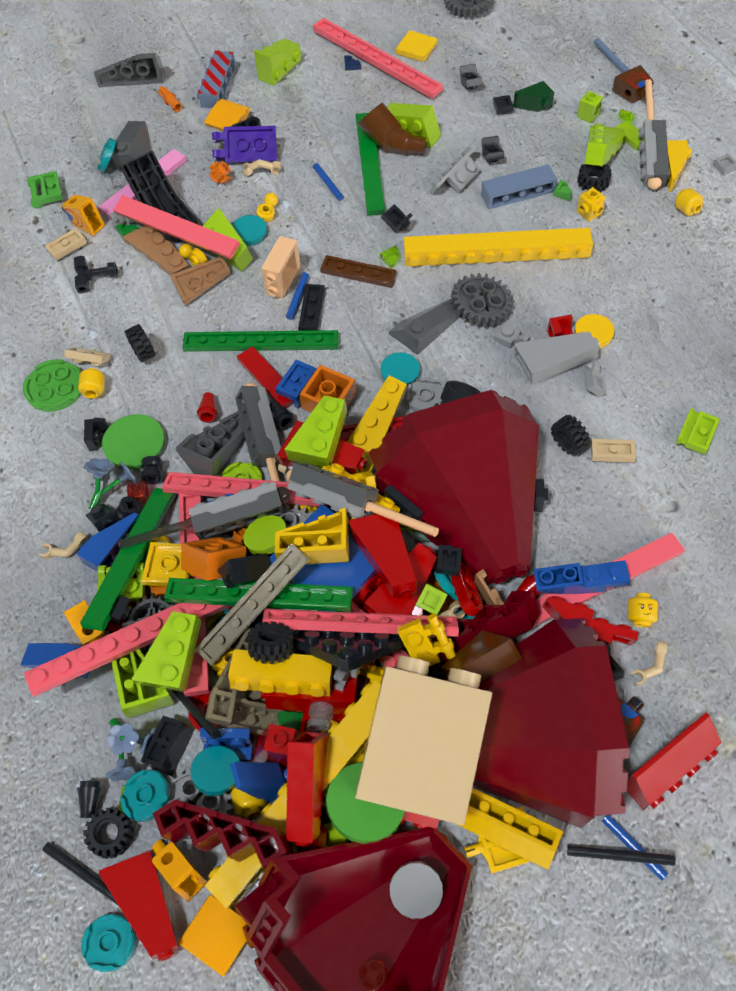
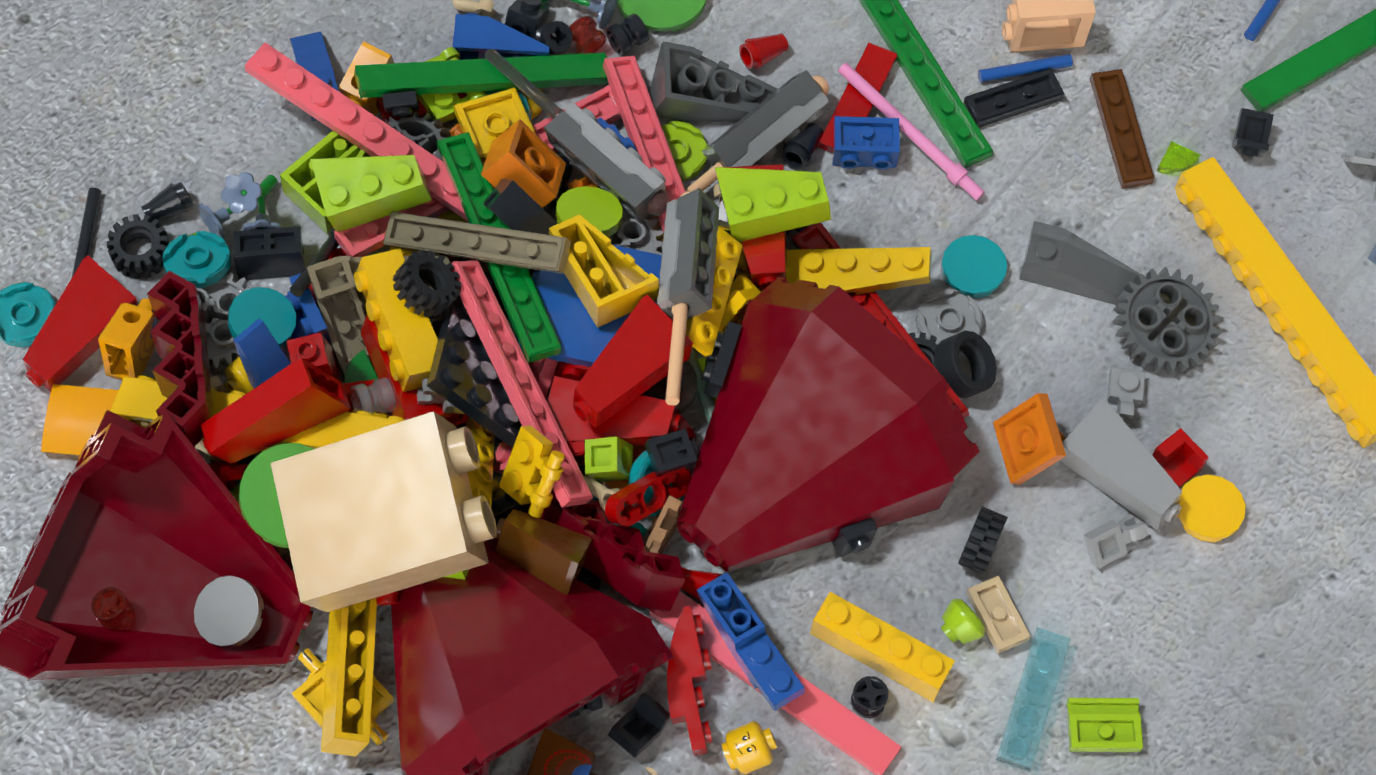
camera: 55 degrees right, 5 degrees up
(327, 383) = (868, 188): orange brick -> none
(340, 352) = (955, 172): none -> bright pink bar
(522, 384) = (1029, 438): none -> orange tile
(609, 513) = (881, 646): none -> yellow brick
(611, 468) = (961, 622): none -> lime cone
(640, 534) = (870, 689): none -> black wheel
(670, 457) = (1033, 699): none -> clear light blue plate

